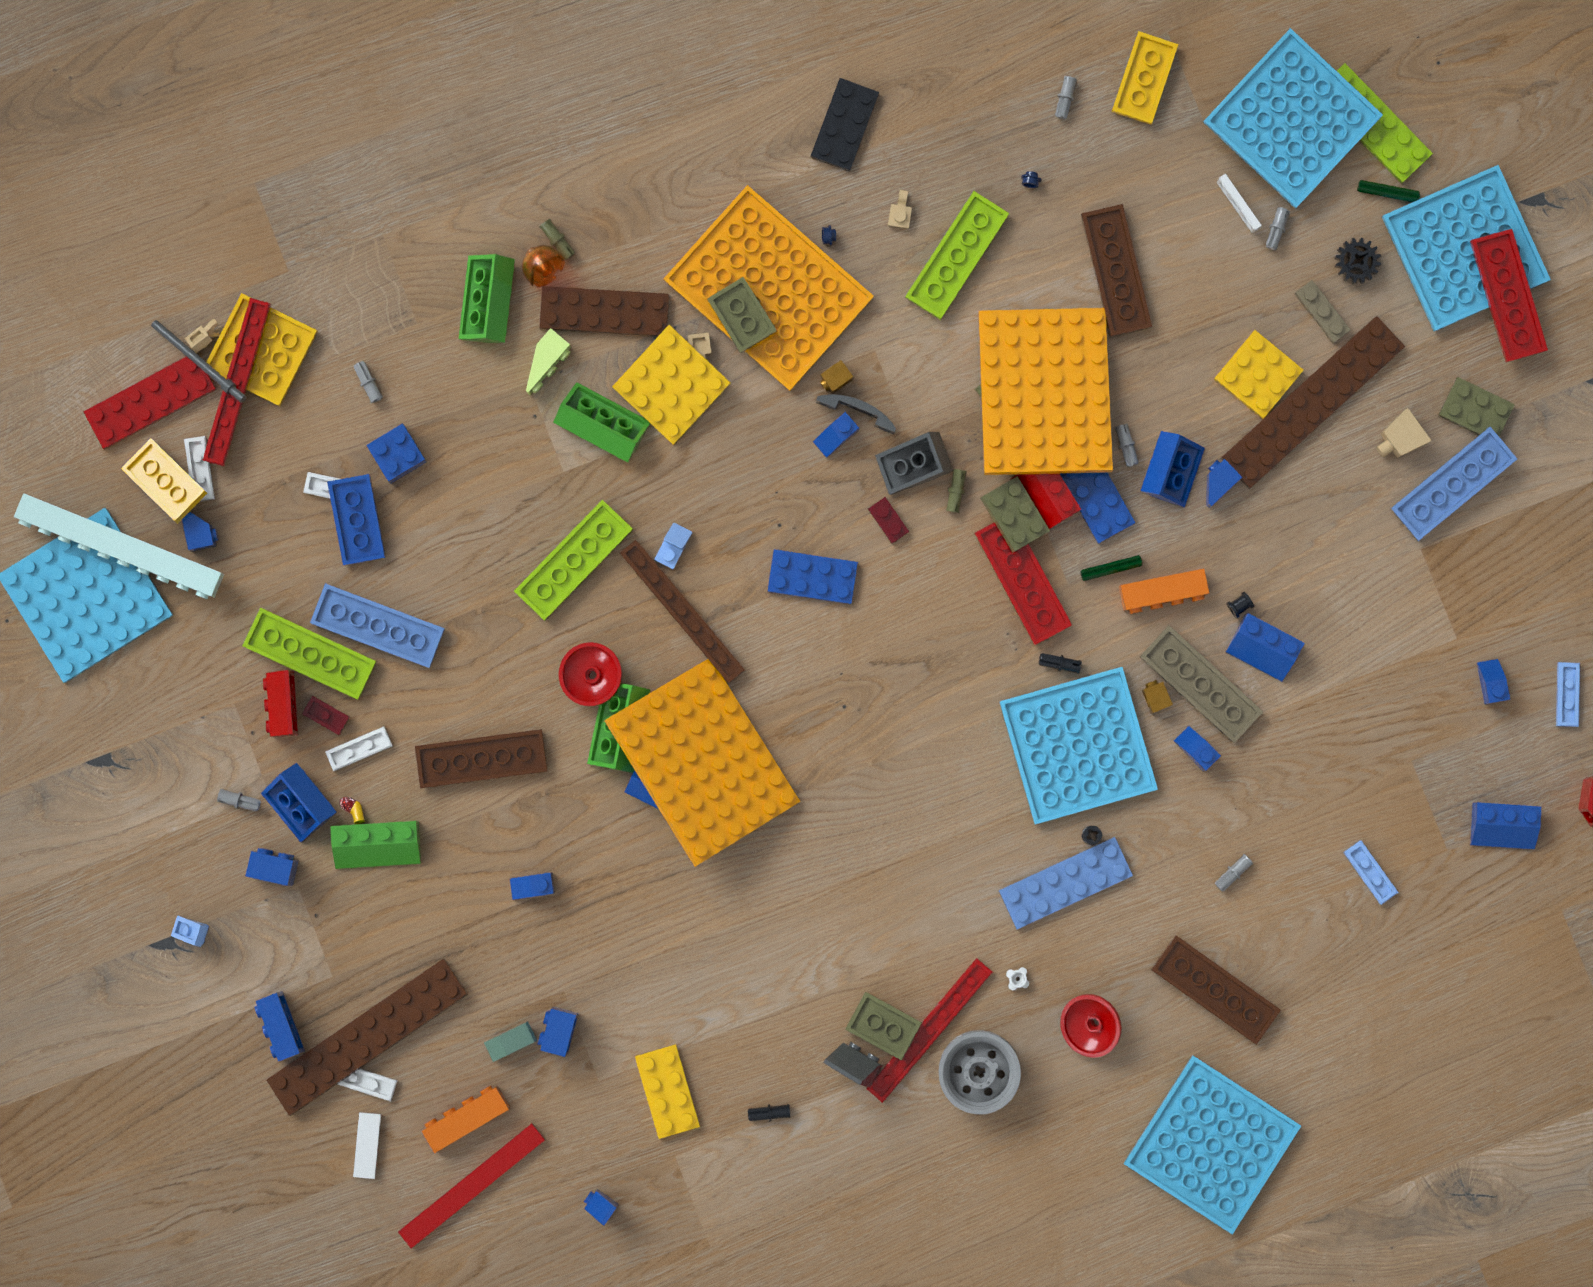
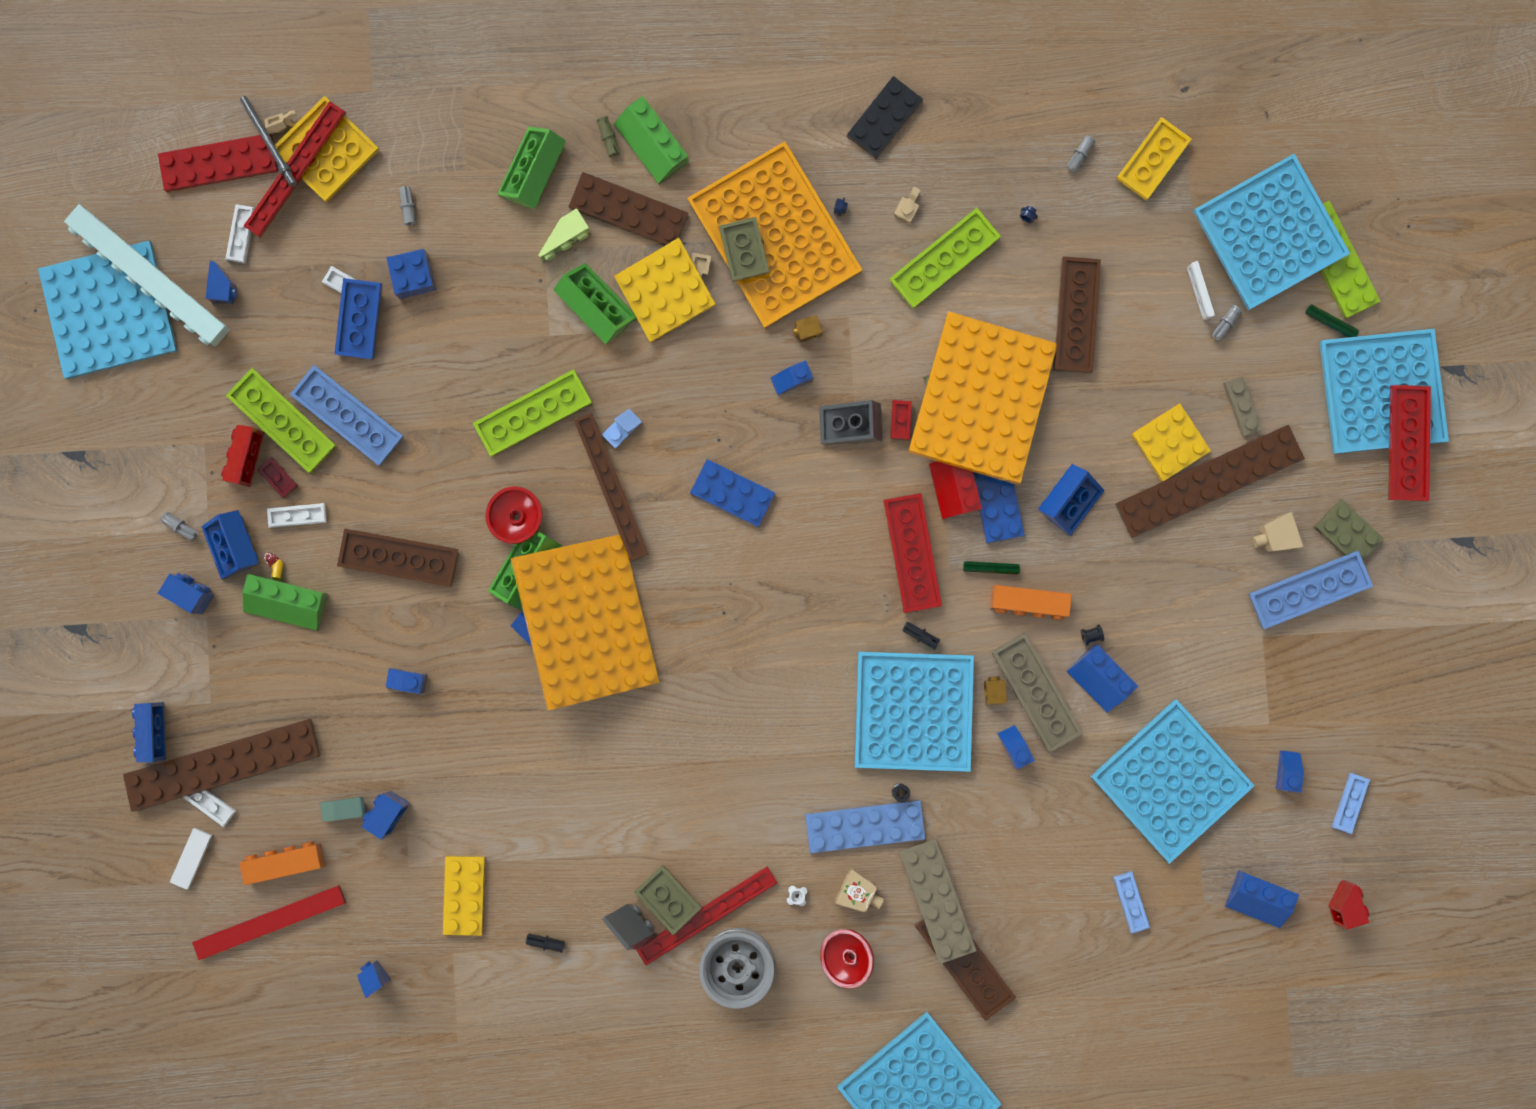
camera: 15 degrees right, 0 degrees up
(164, 481) = (204, 233): yellow plate -> none
(190, 931) = (101, 625): light blue slope -> none
(541, 265) = (587, 153): clear orange cylinder -> none
(604, 229) = (651, 140): none -> bright green slope
(882, 422) = (798, 348): dark grey slope -> none
(888, 520) = (813, 465): dark red plate -> none
(956, 490) = (879, 459): olive pin -> none
(965, 442) = (900, 420): none -> red plate
(1015, 514) = (923, 495): olive plate -> none
(1080, 954) = (858, 892): none -> tan torso
(1127, 445) = (1038, 466): light grey axle -> none
(1166, 935) = (937, 901): none -> dark tan plate
(1219, 481) = (1109, 522): blue slope -> none
(1233, 872) = (1012, 864): light grey axle -> none
(1362, 267) = (1284, 363): black gear -> none
(1372, 731) = (1172, 781): none -> medium azure plate

